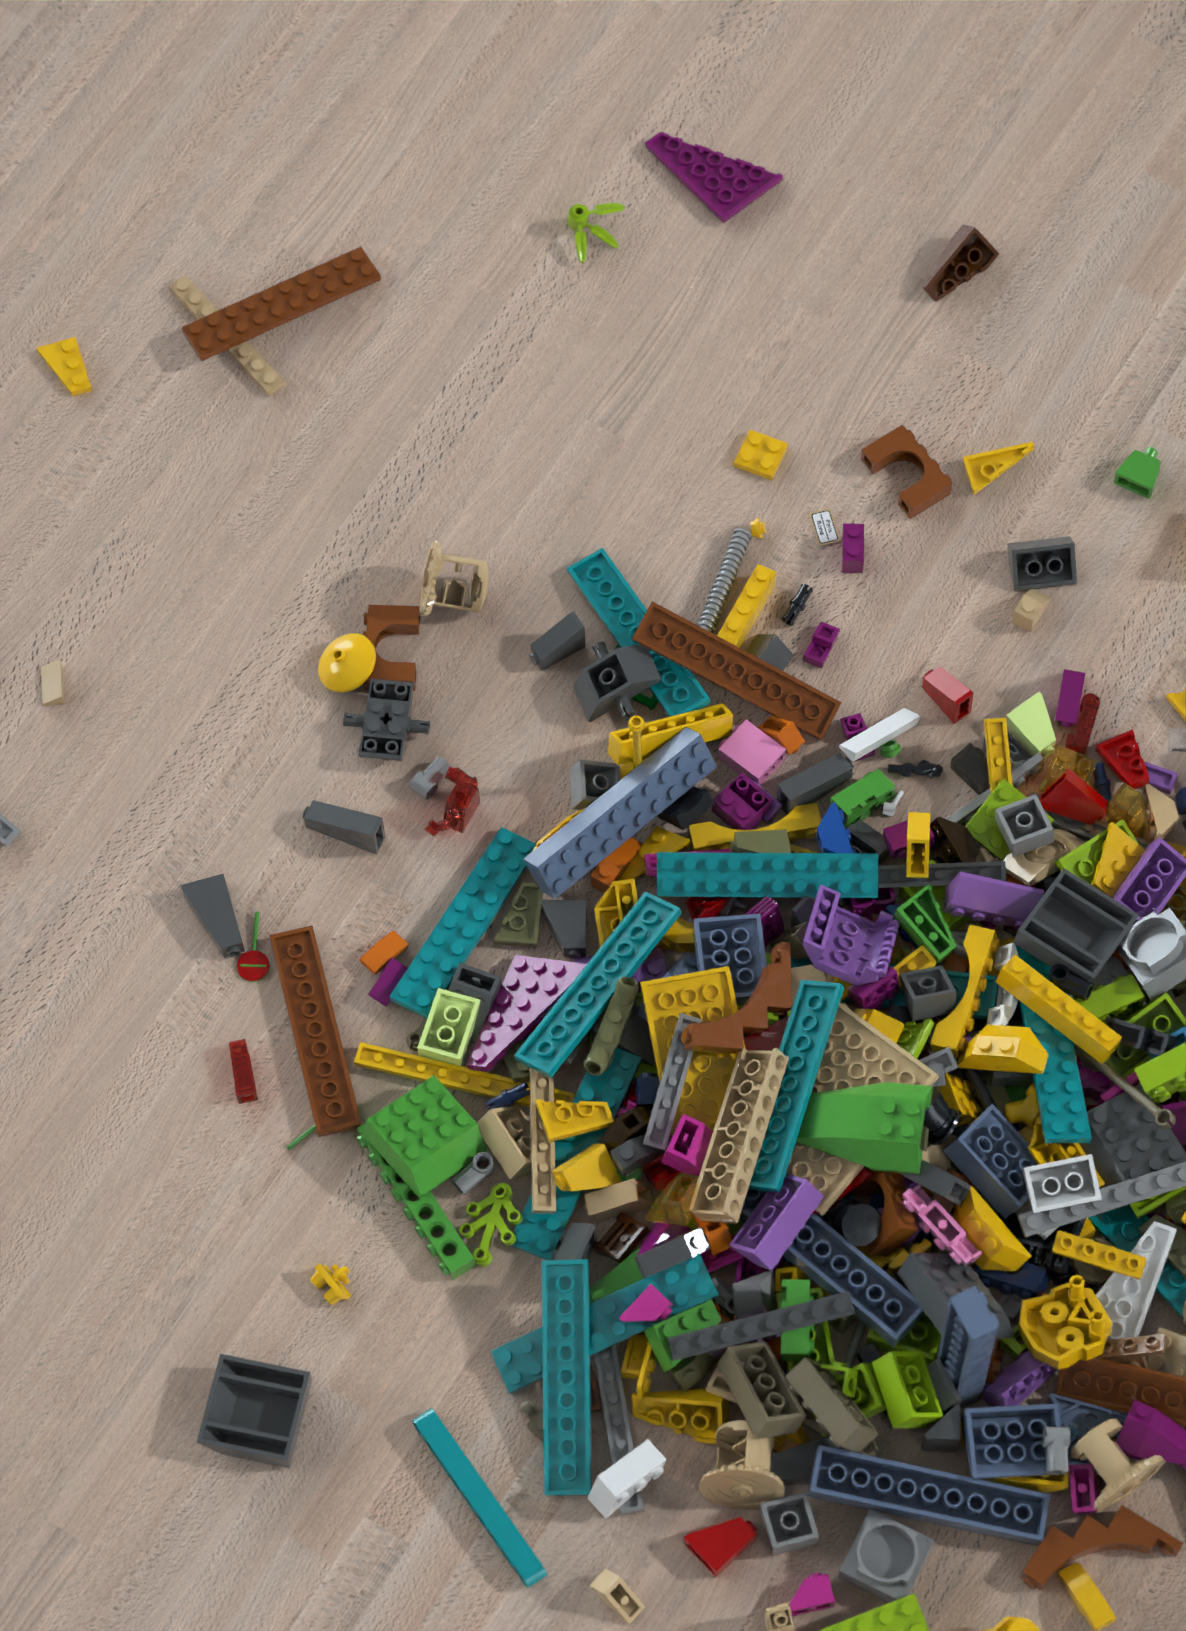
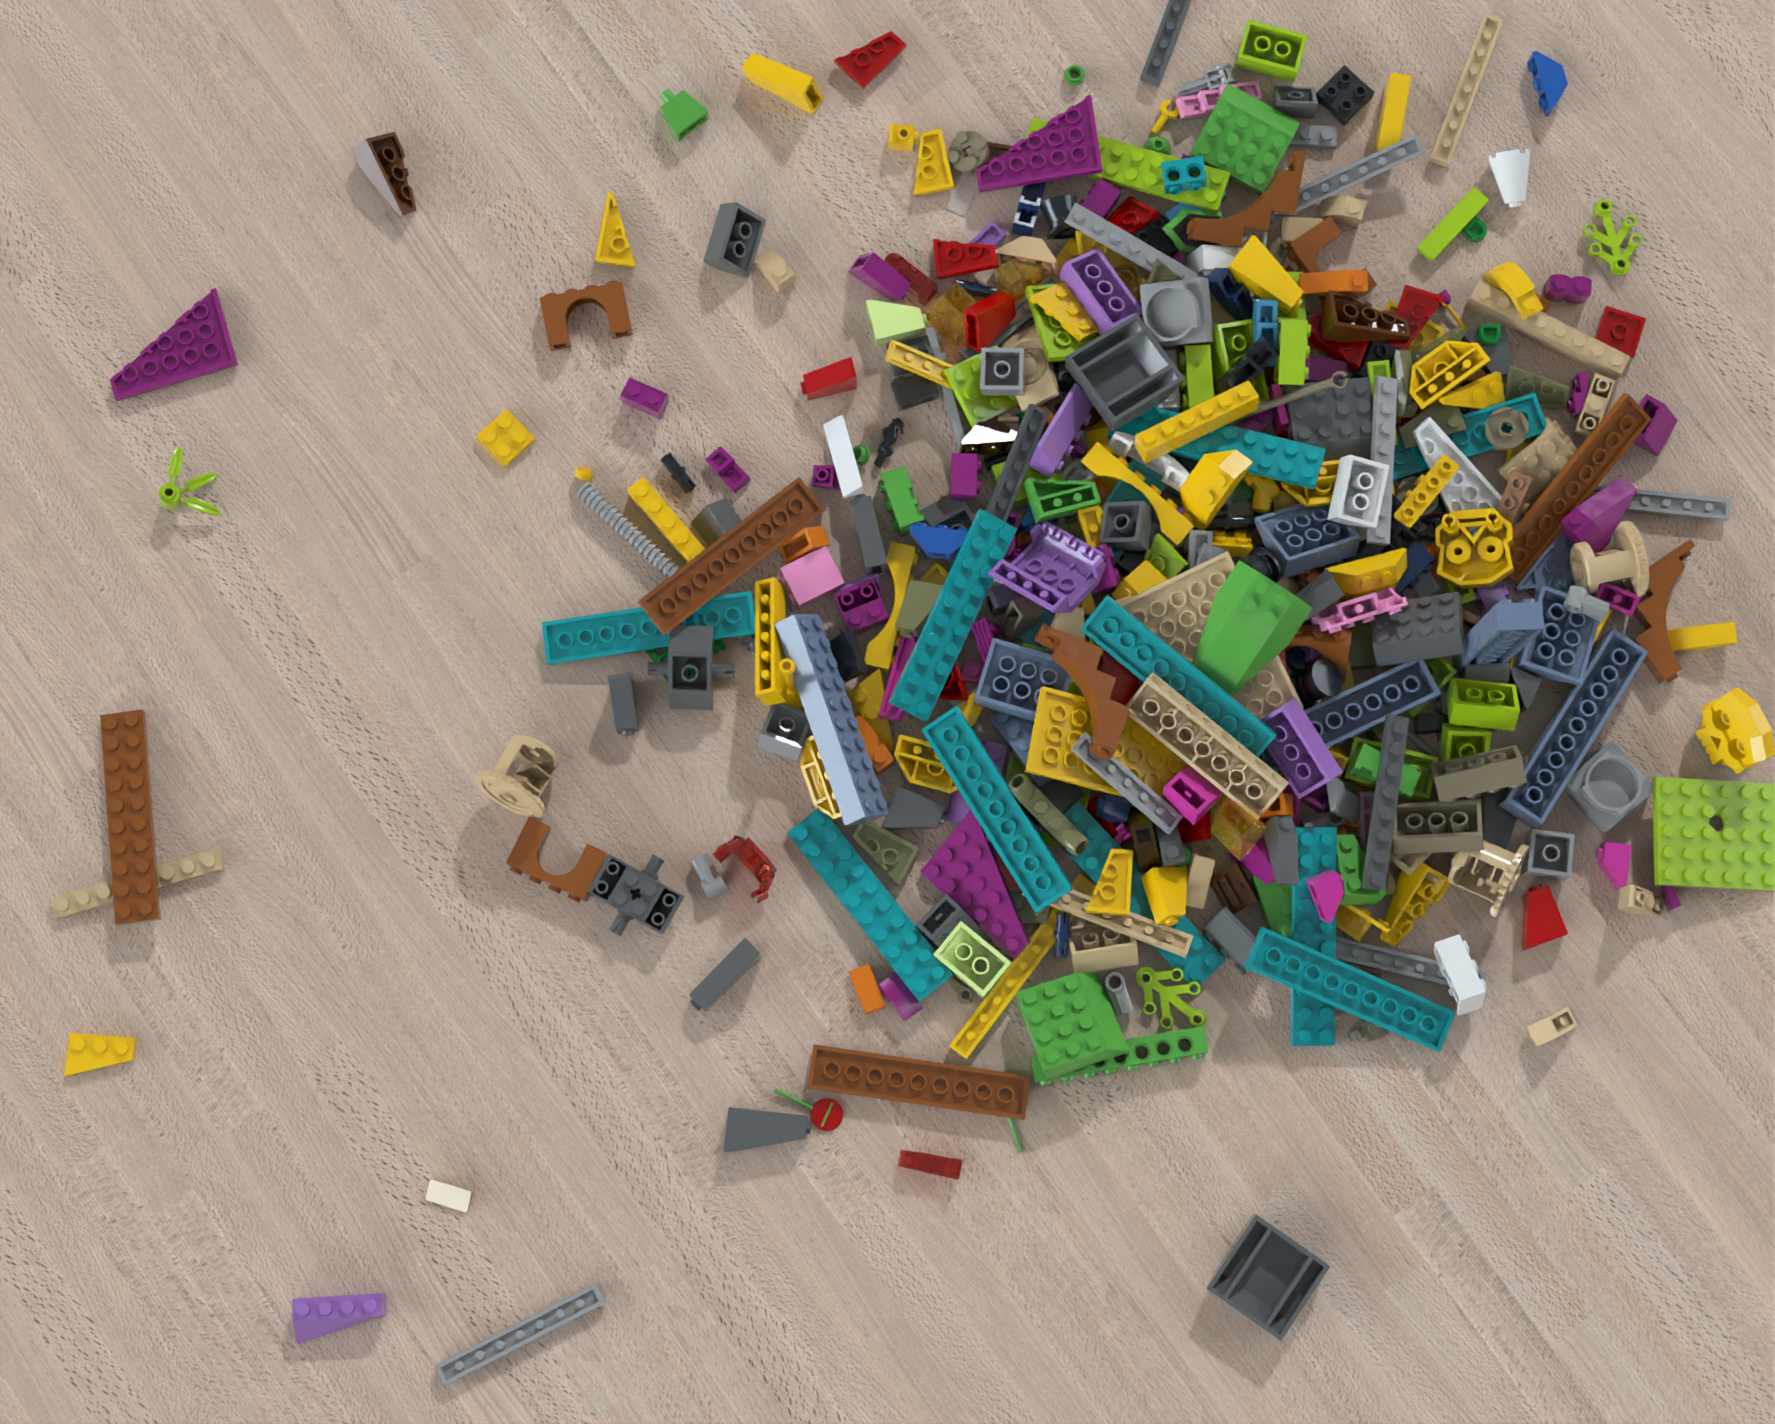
camera: 70 degrees left, 15 degrees up
(325, 1275) = (1168, 1158): yellow hips -> none
(347, 662) = (564, 898): yellow dish -> none
(479, 1498) = (1419, 1109): teal beam -> none
(824, 527) = (606, 414): sticker -> none
(849, 1374) = (1447, 750): lime bracket -> none
(889, 808) = (917, 481): white hand -> none
(897, 1260) = (1359, 658): yellow slope -> none
(918, 845) = (986, 470): yellow slope -> none
(1070, 983) = (1176, 399): black piece -> none

